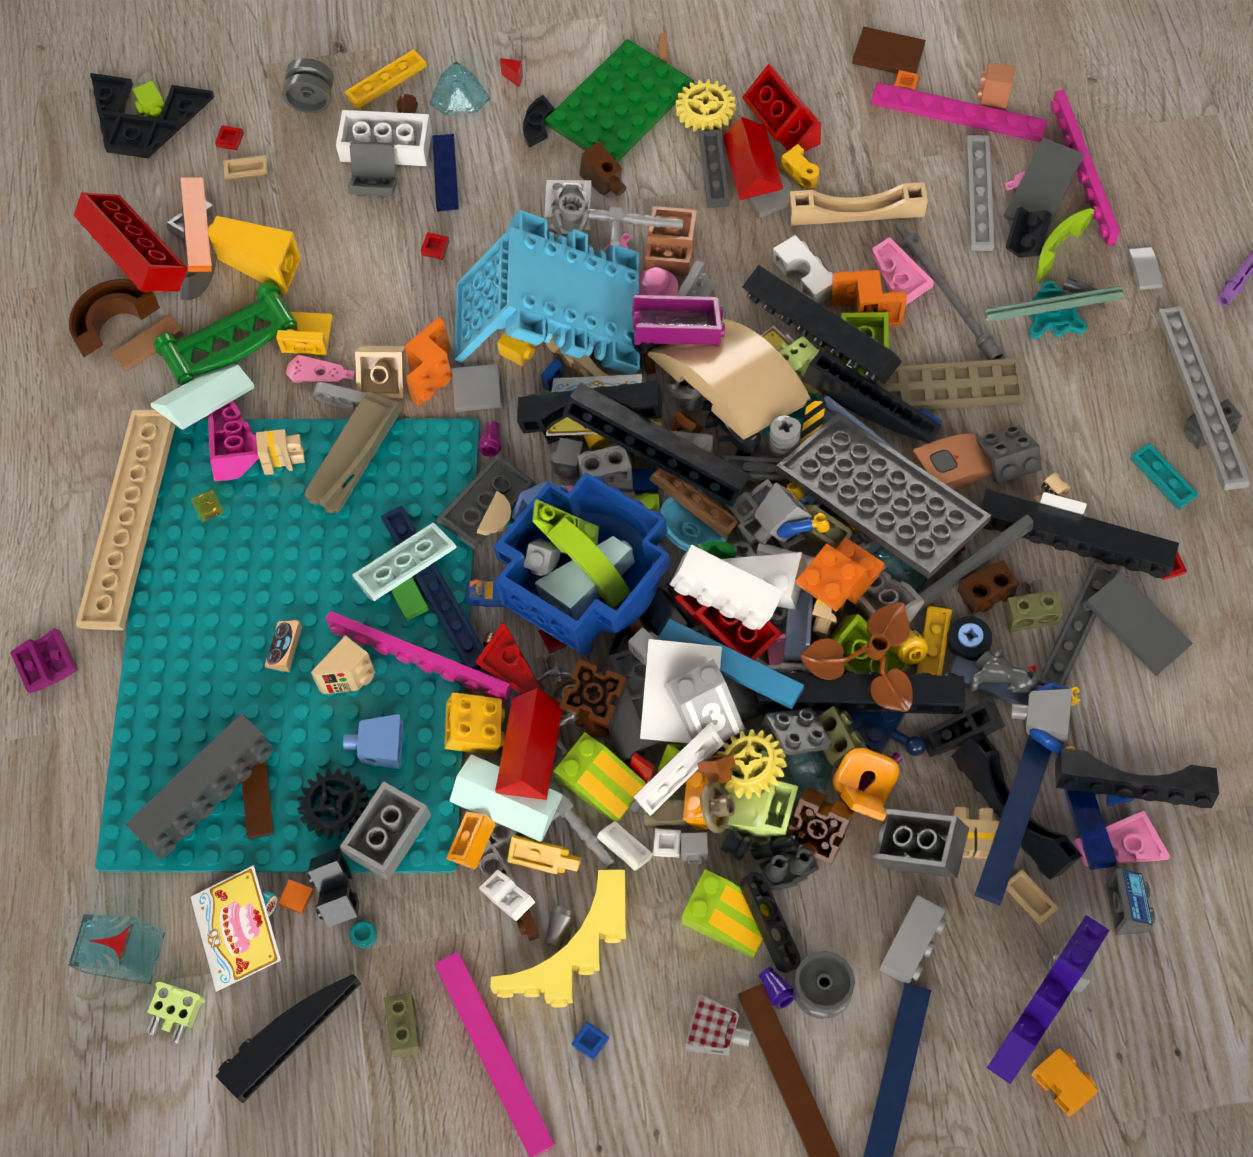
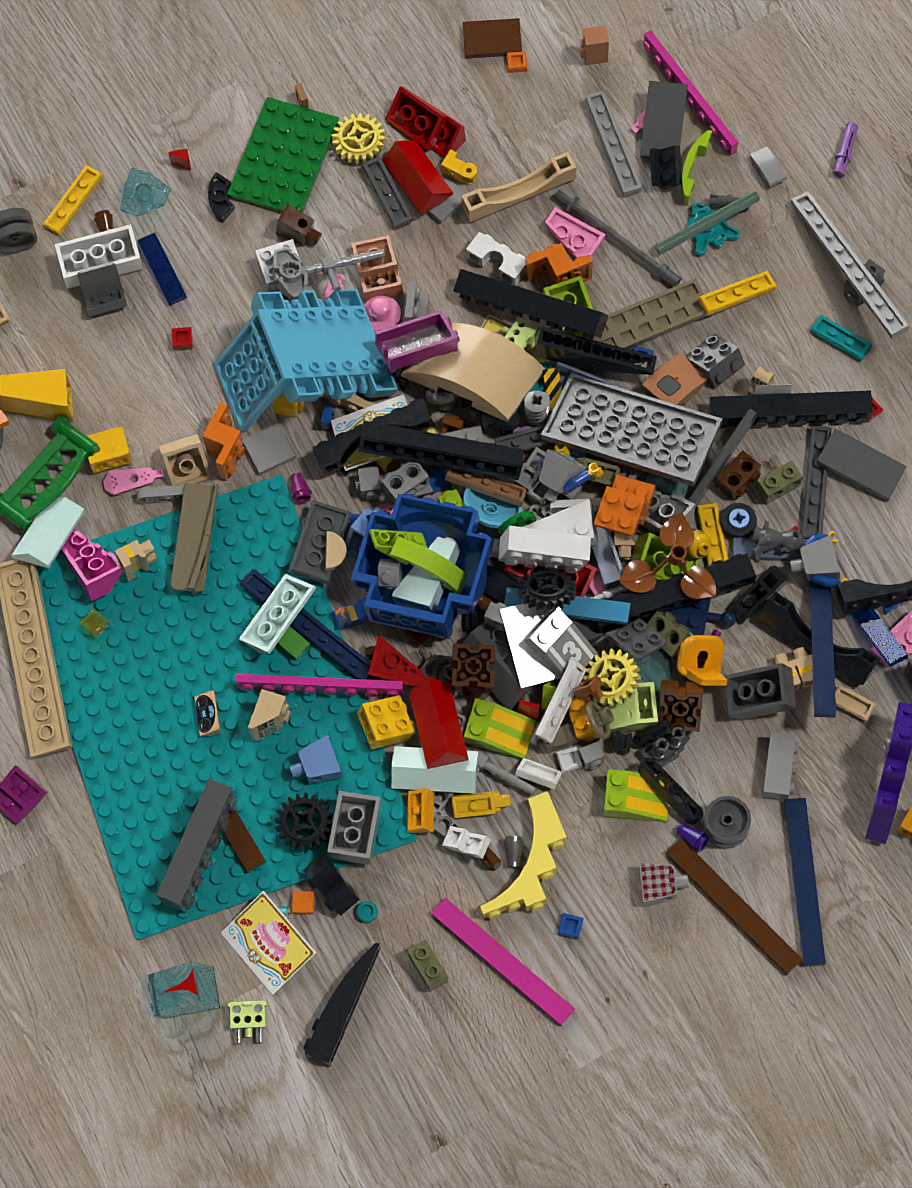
camera: 20 degrees left, 5 degrees up
(710, 635) = (546, 590): none -> black gear
(959, 112) = (570, 75): dark pink plate -> none
(1060, 389) = (737, 293): none -> yellow tile

